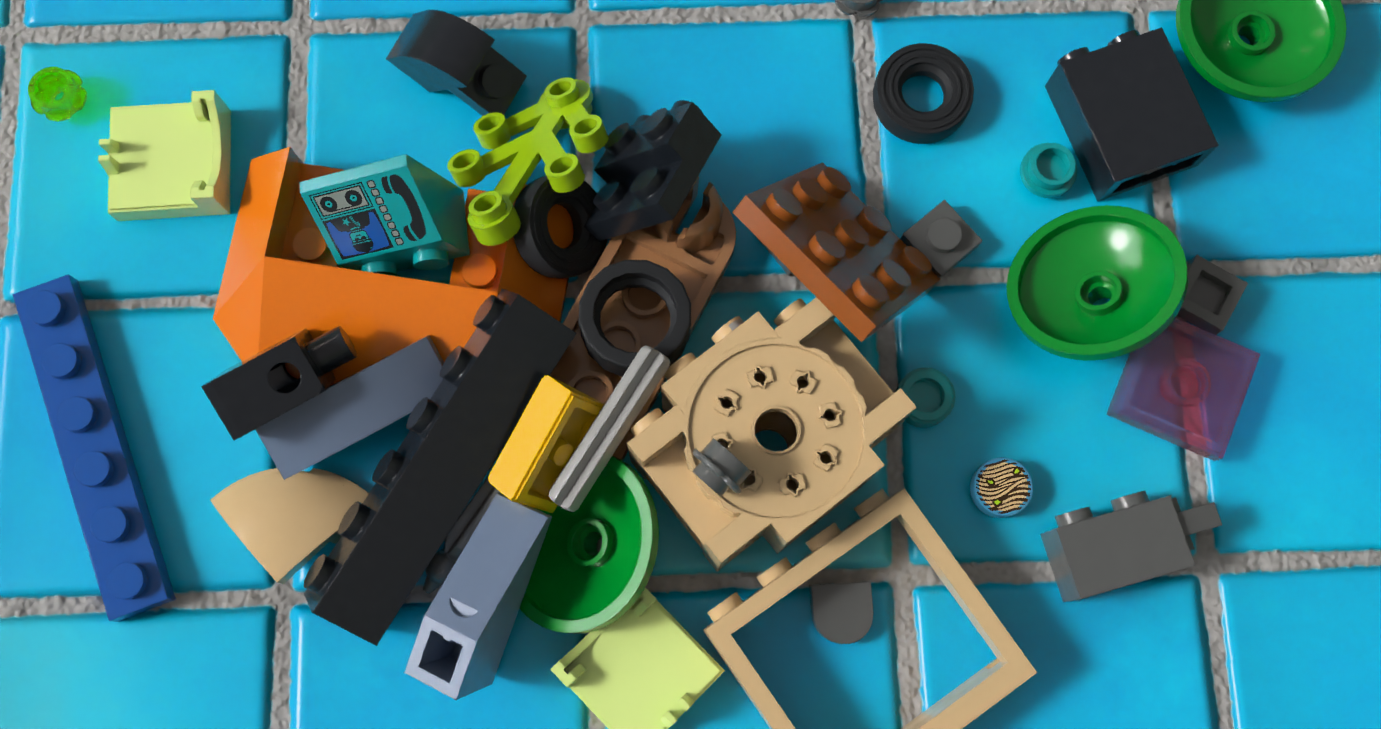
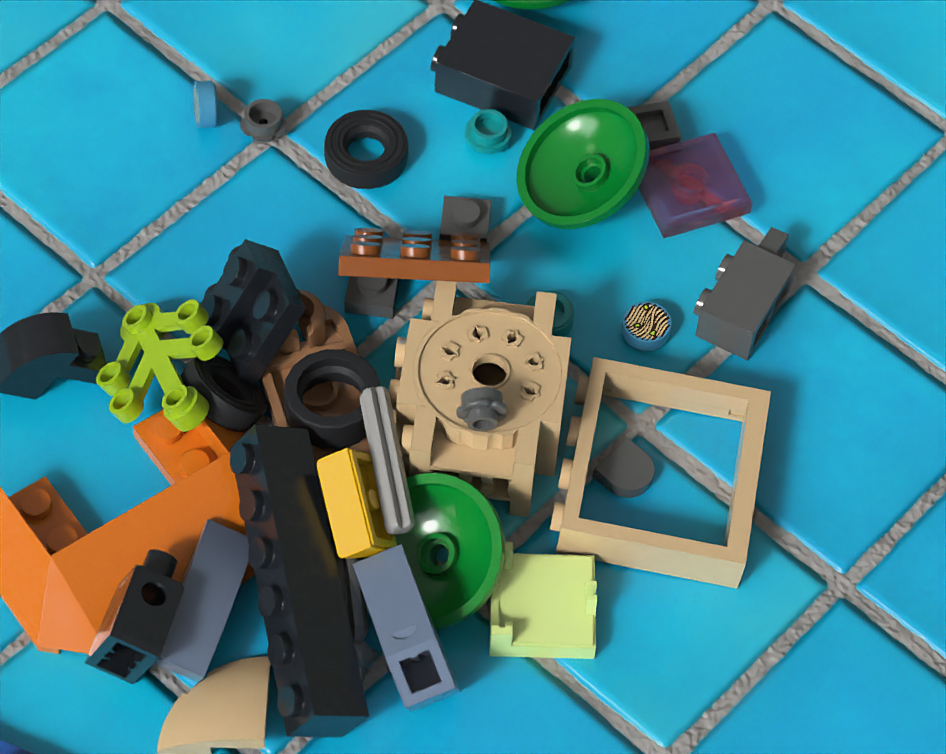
camera: 45 degrees left, 20 degrees down
(389, 216) = (110, 464): teal slope -> none

